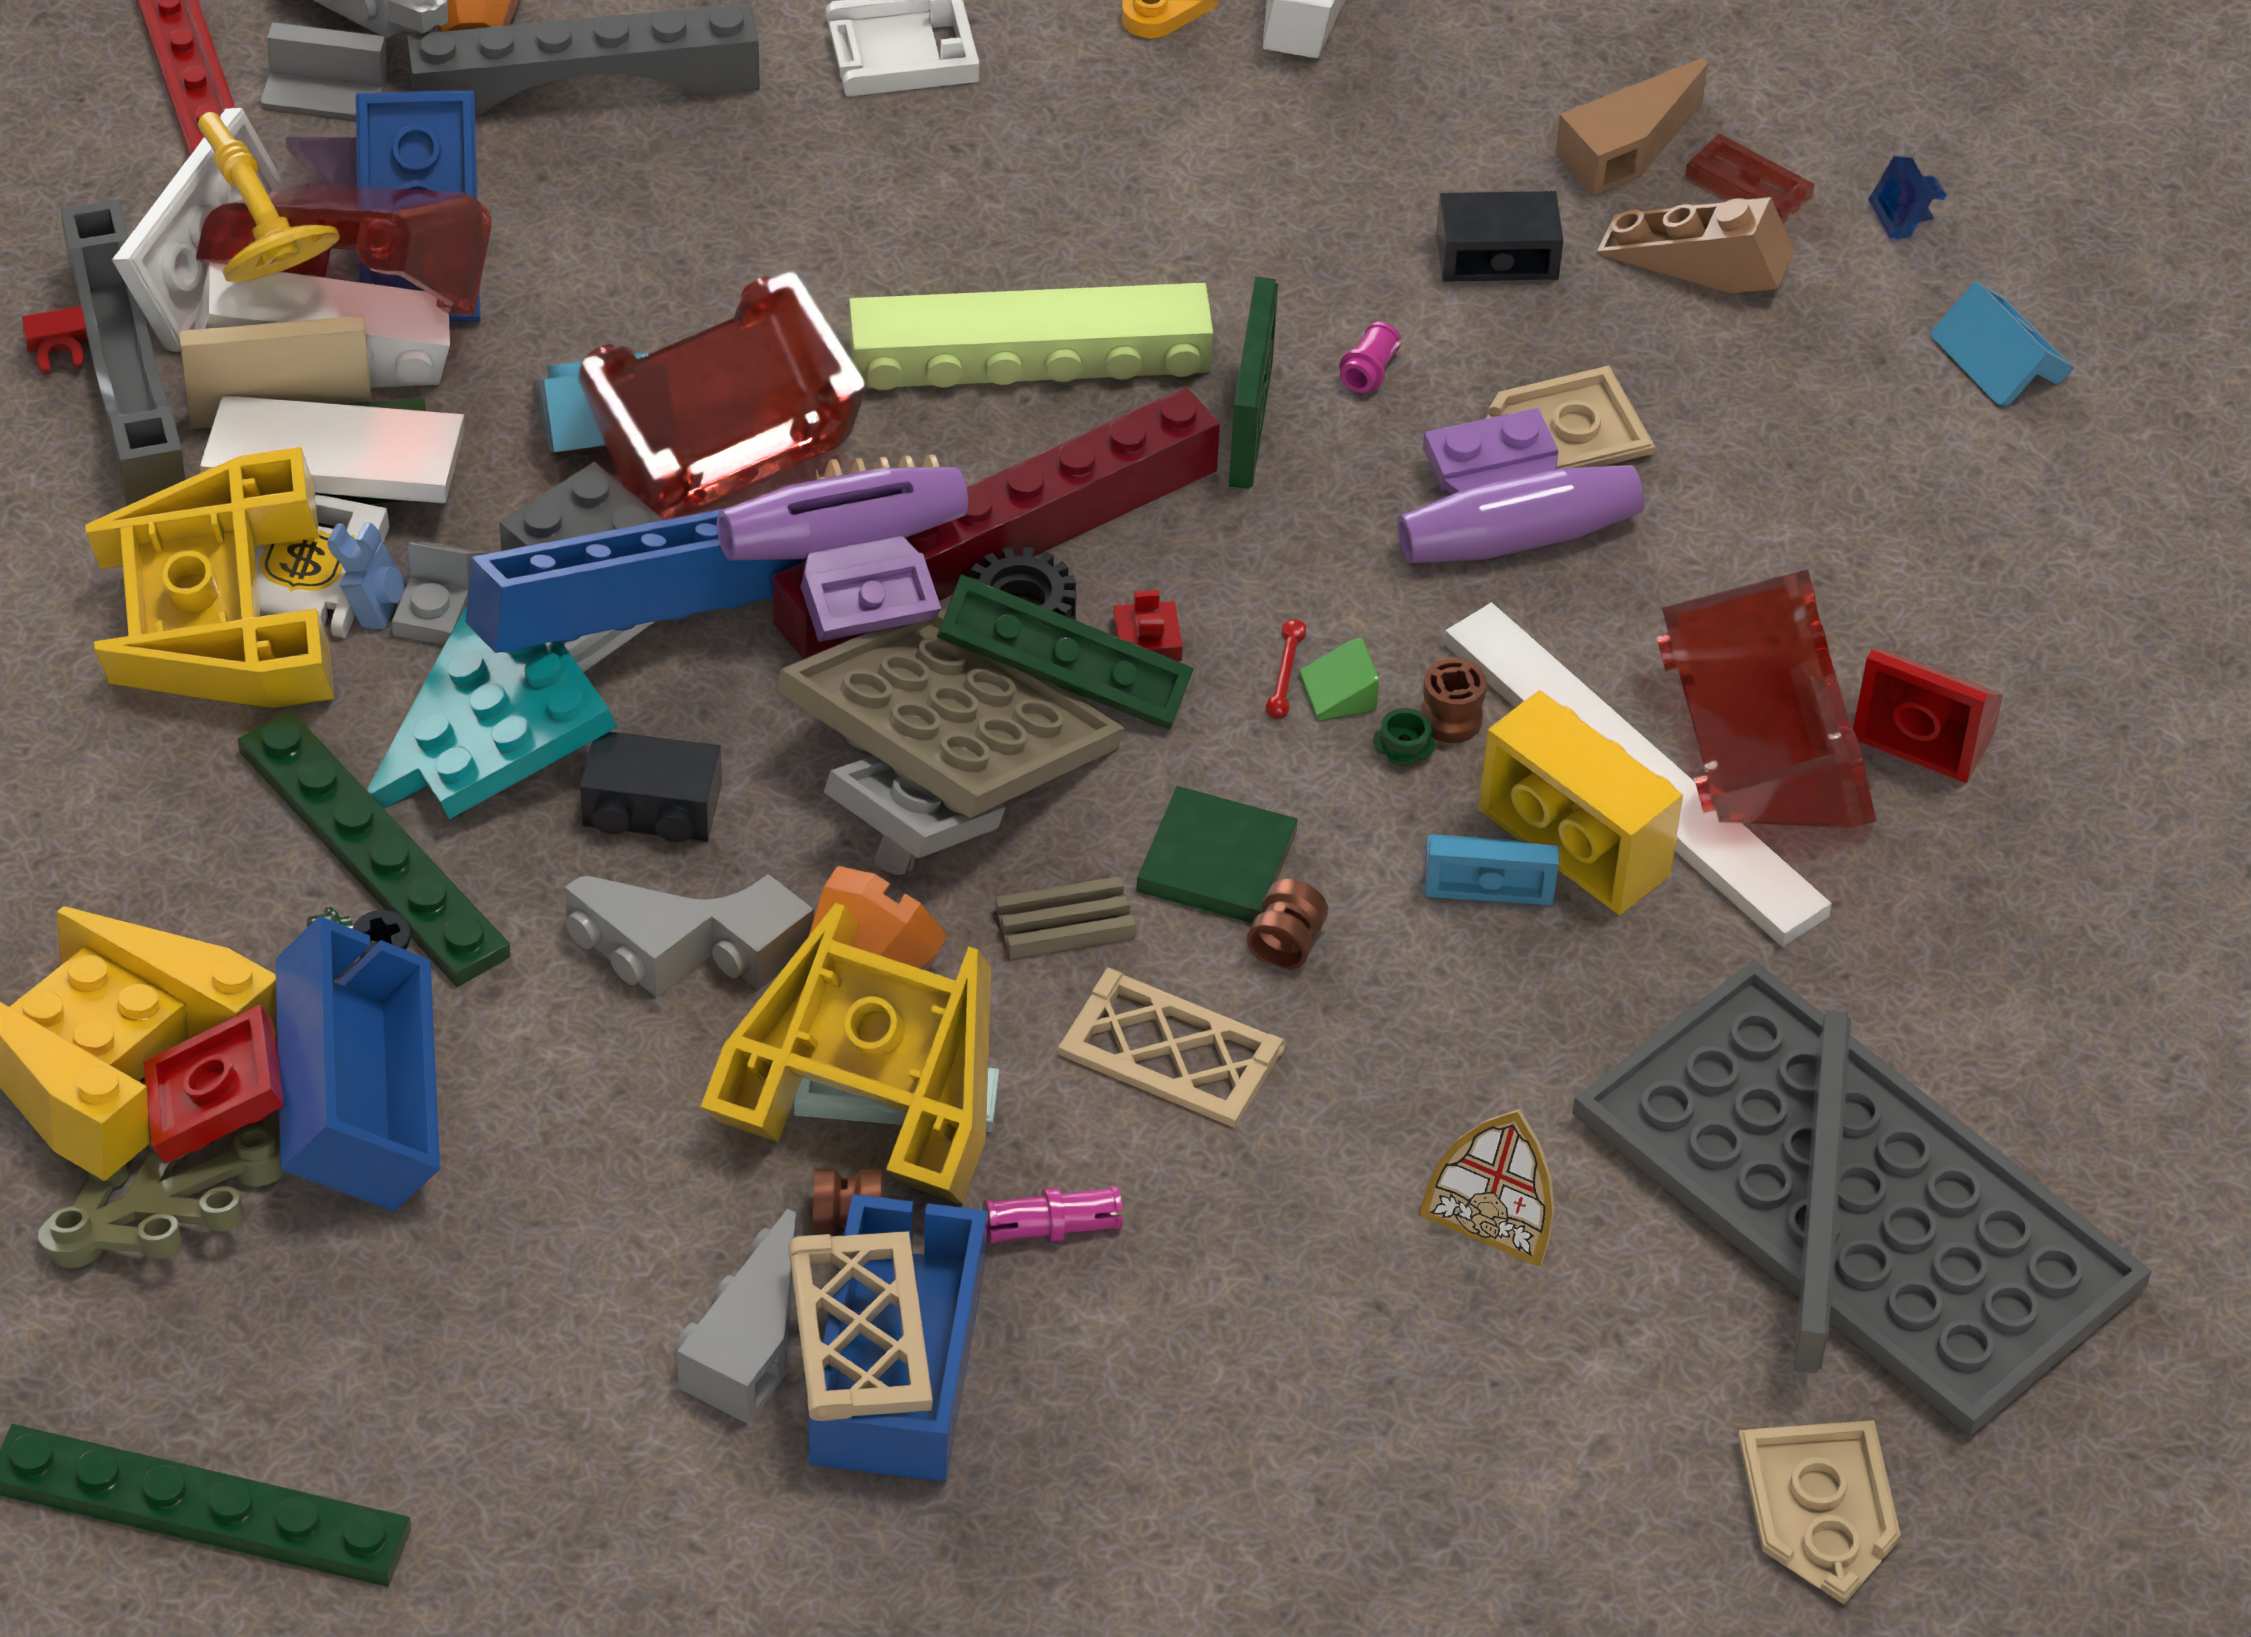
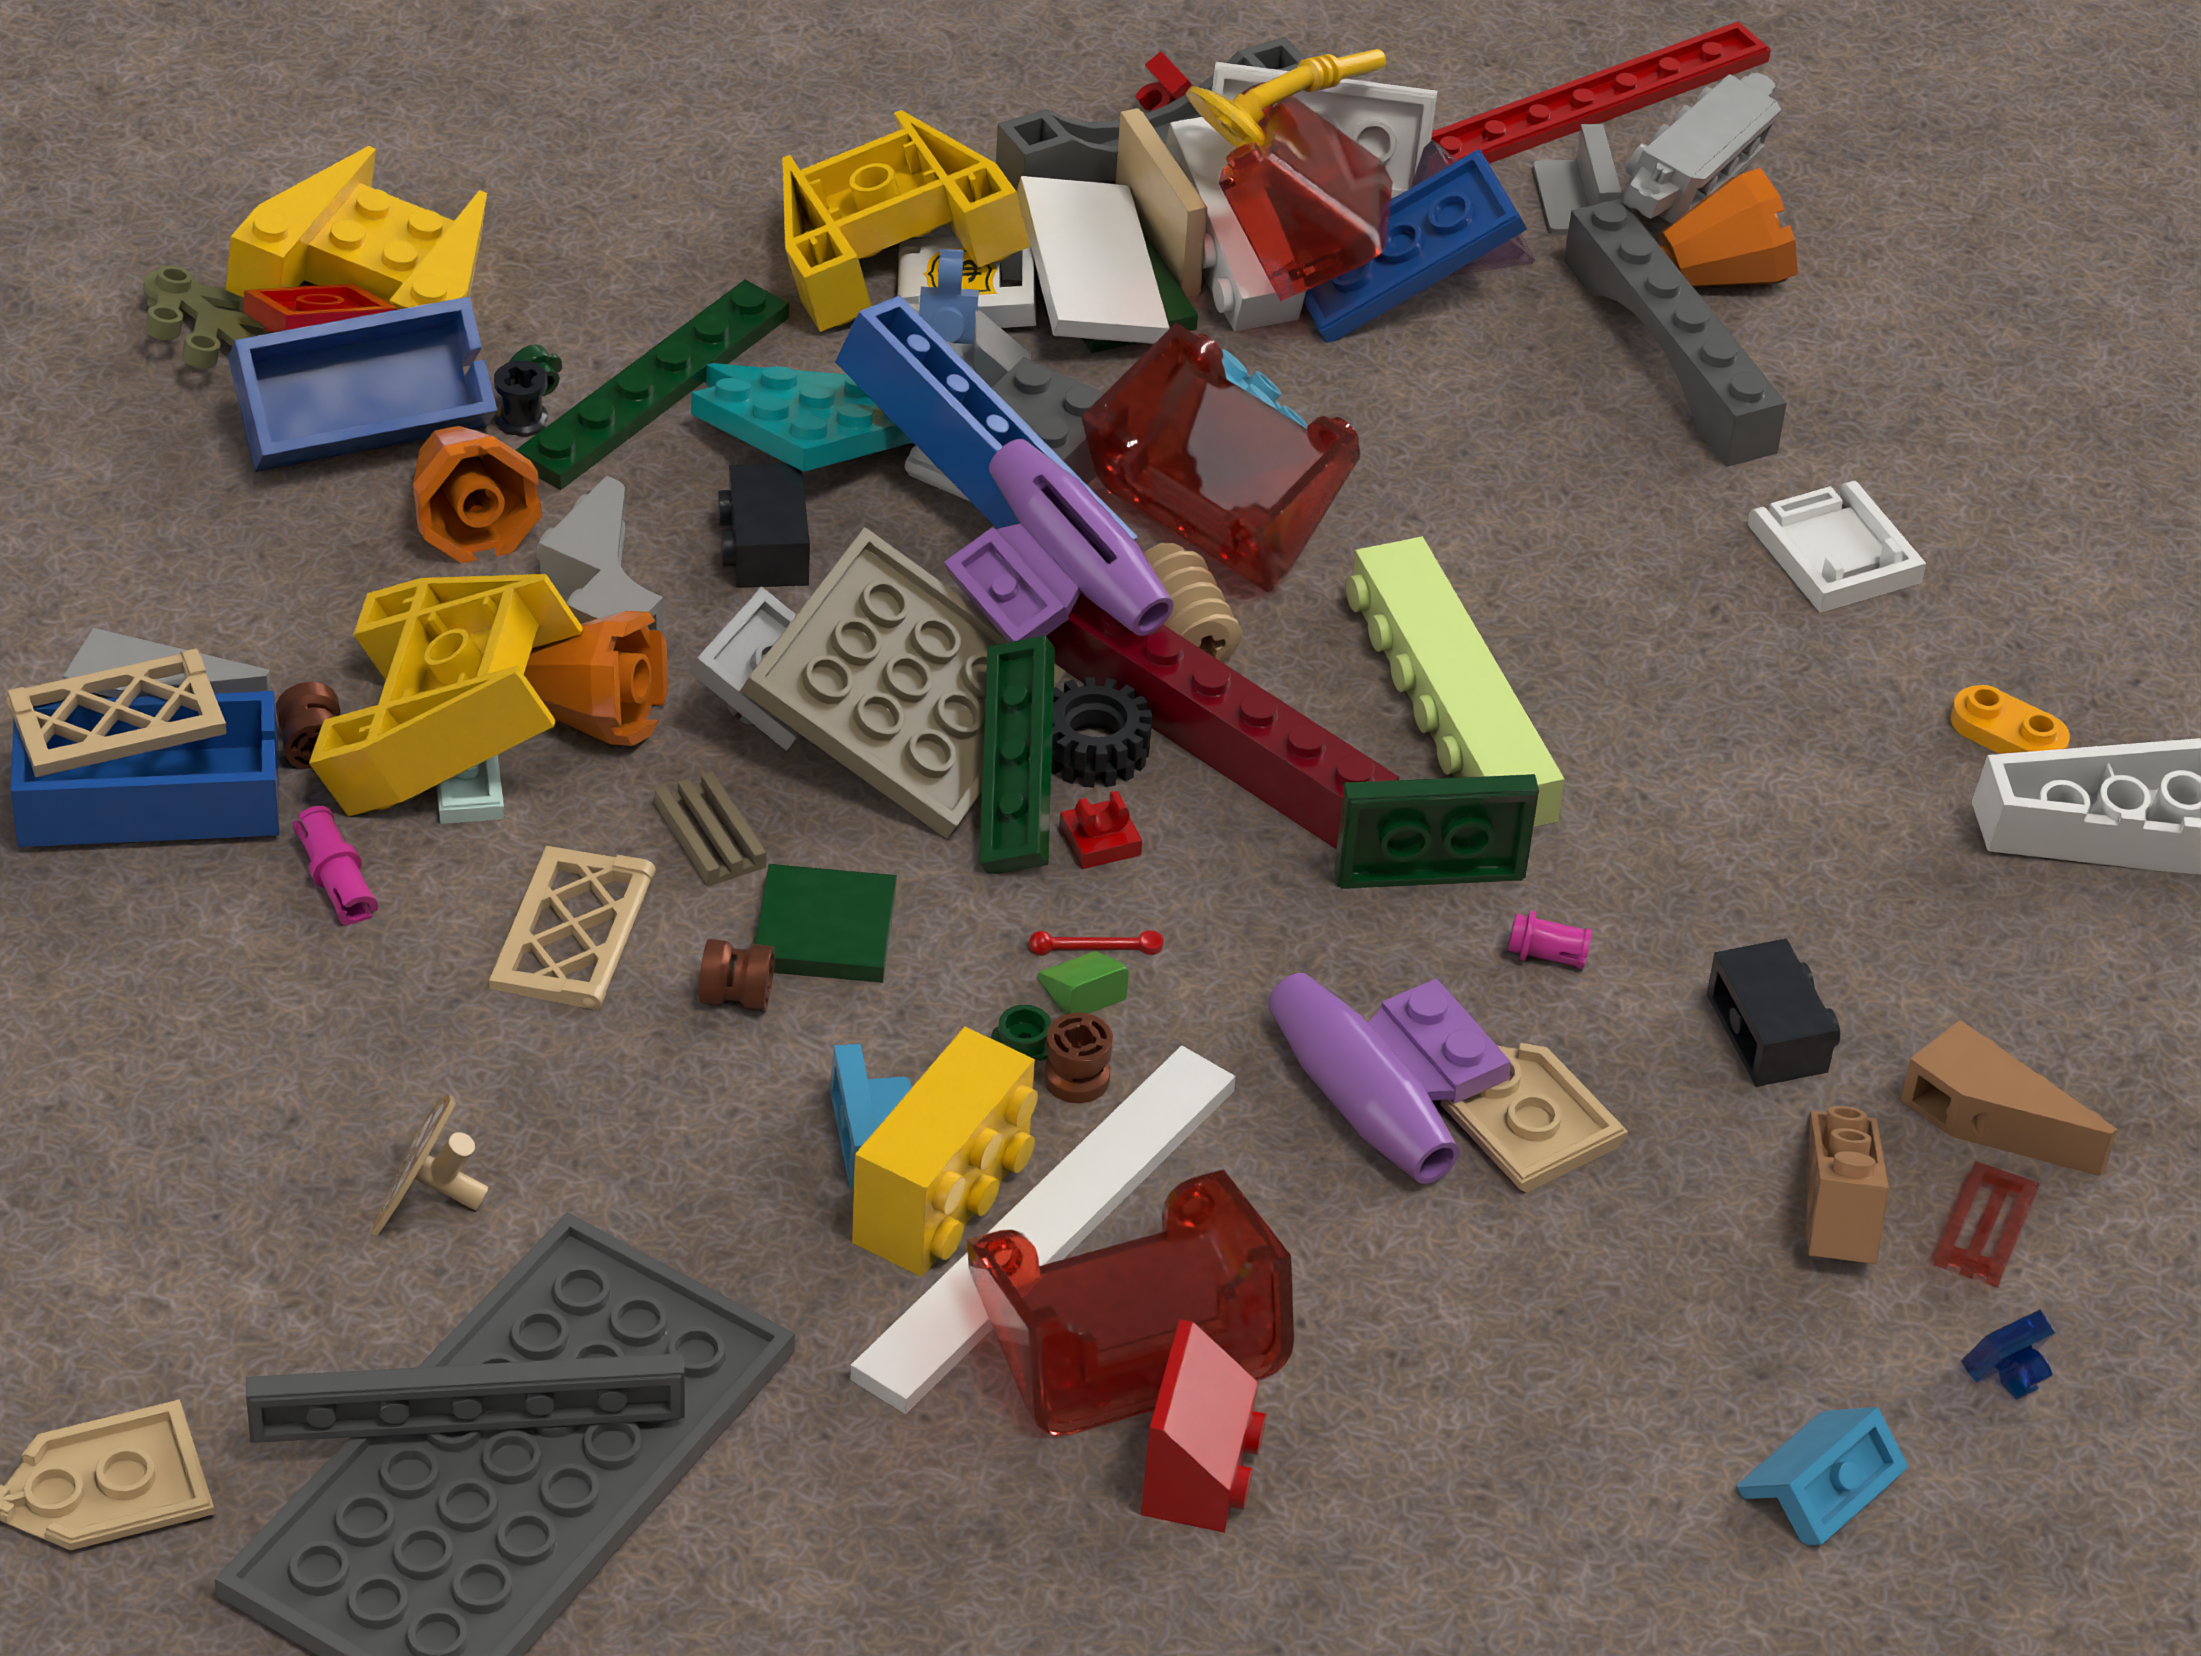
camera: 75 degrees right, 5 degrees down
(525, 1010) = (474, 494): none -> orange cone

